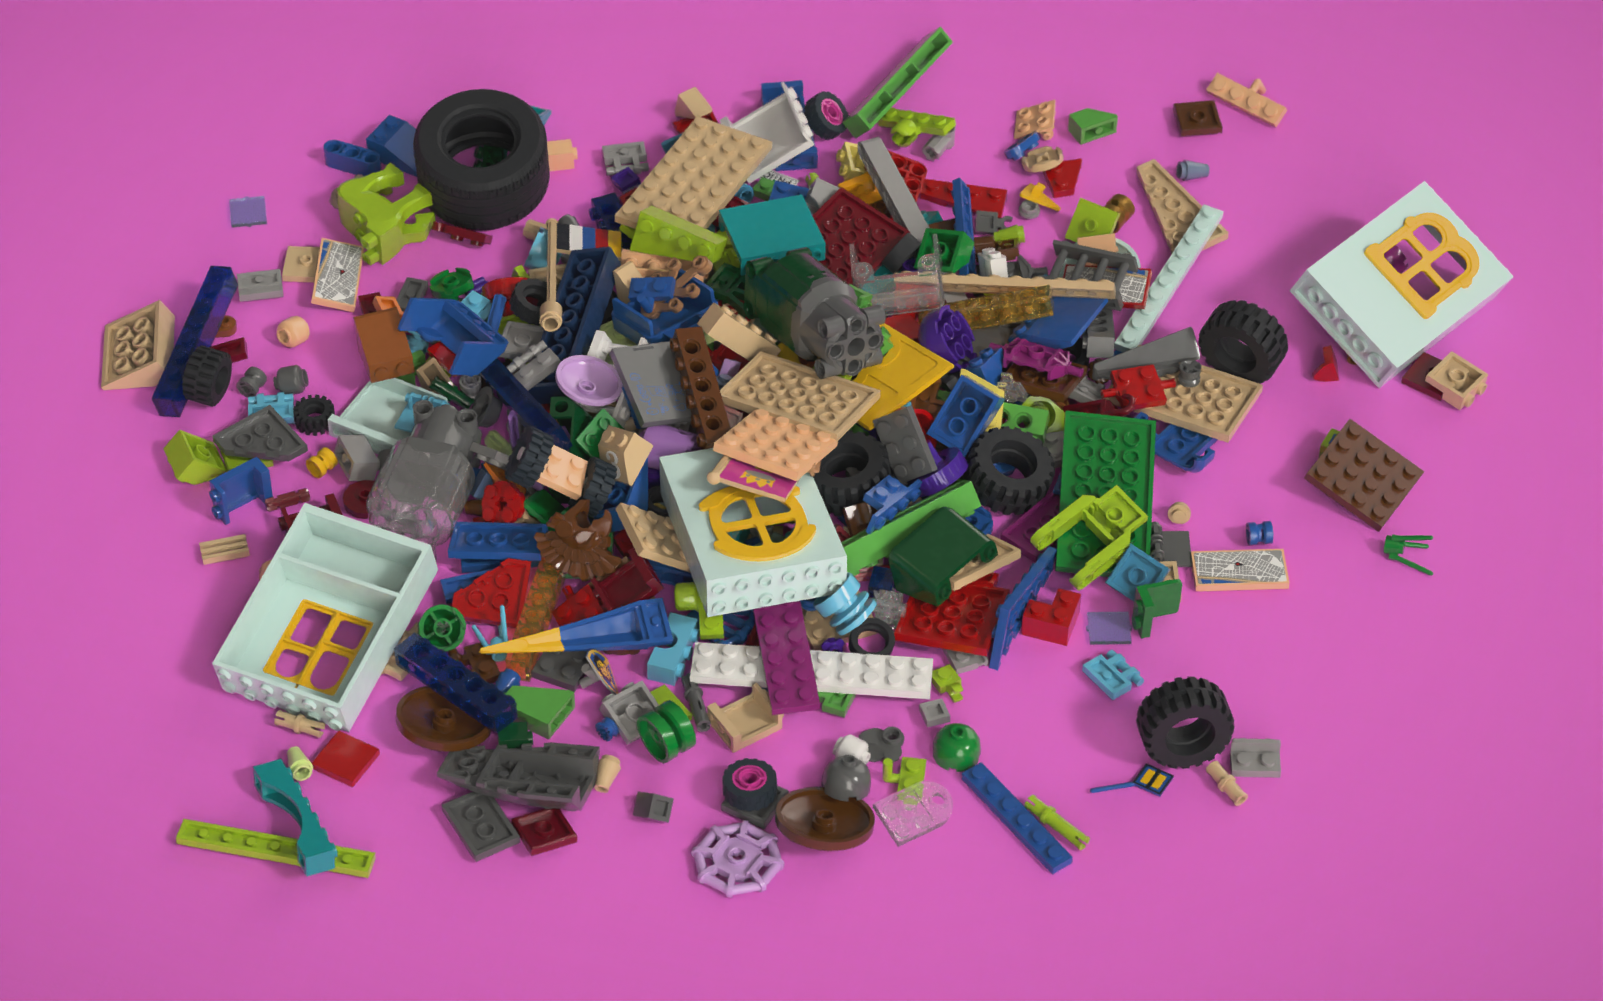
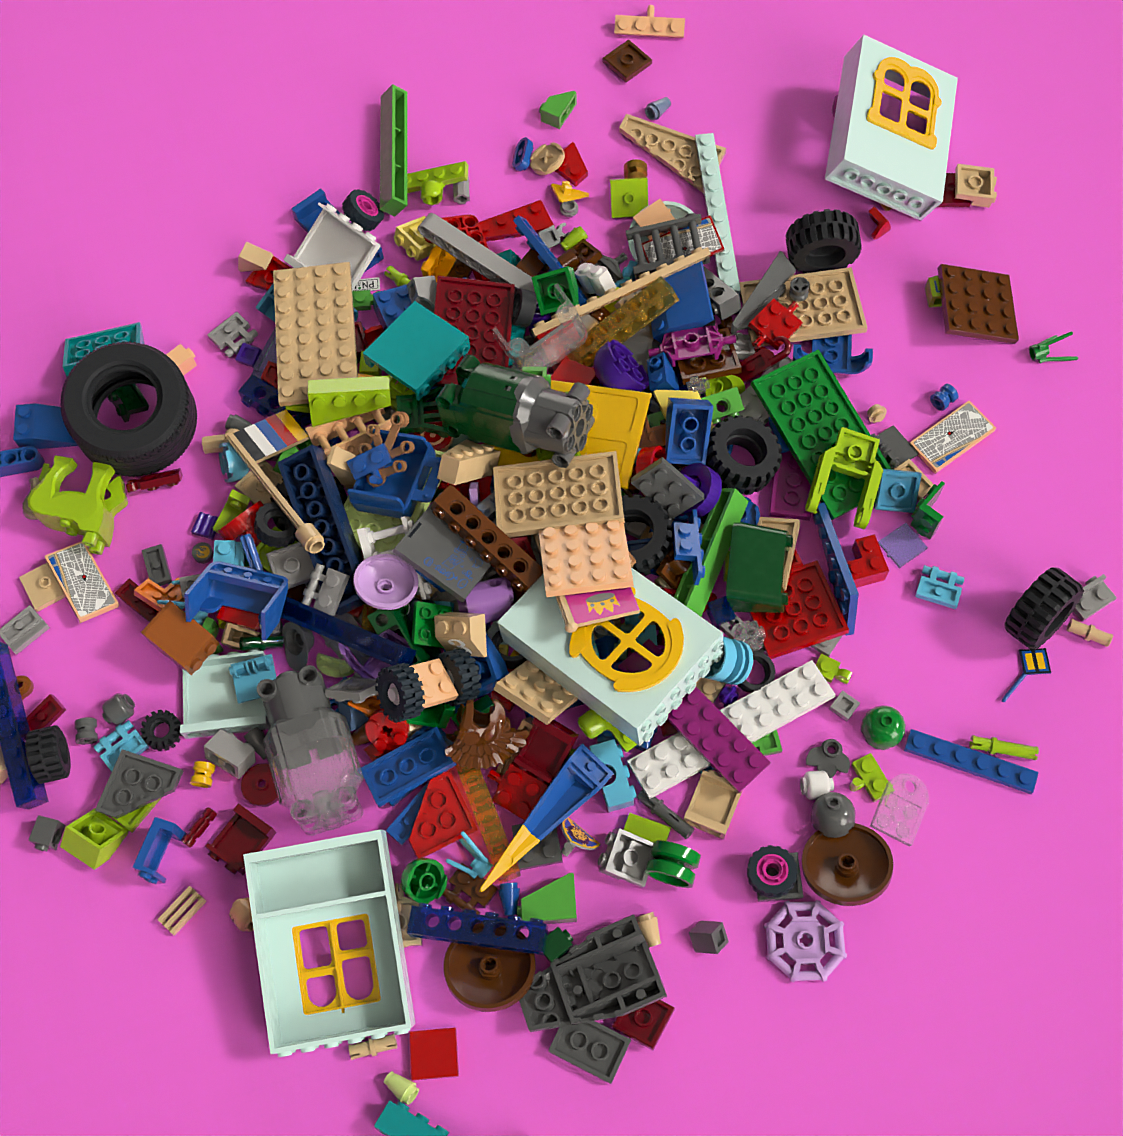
camera: 30 degrees left, 20 degrees up
(158, 434) = (46, 833): none -> dark grey brick
(293, 331) = (85, 660): light nougat head -> none
(451, 285) = (189, 541): green plate -> none
(607, 728) = (618, 885): blue bush -> none
(1036, 118) = (515, 126): light nougat hinge -> none

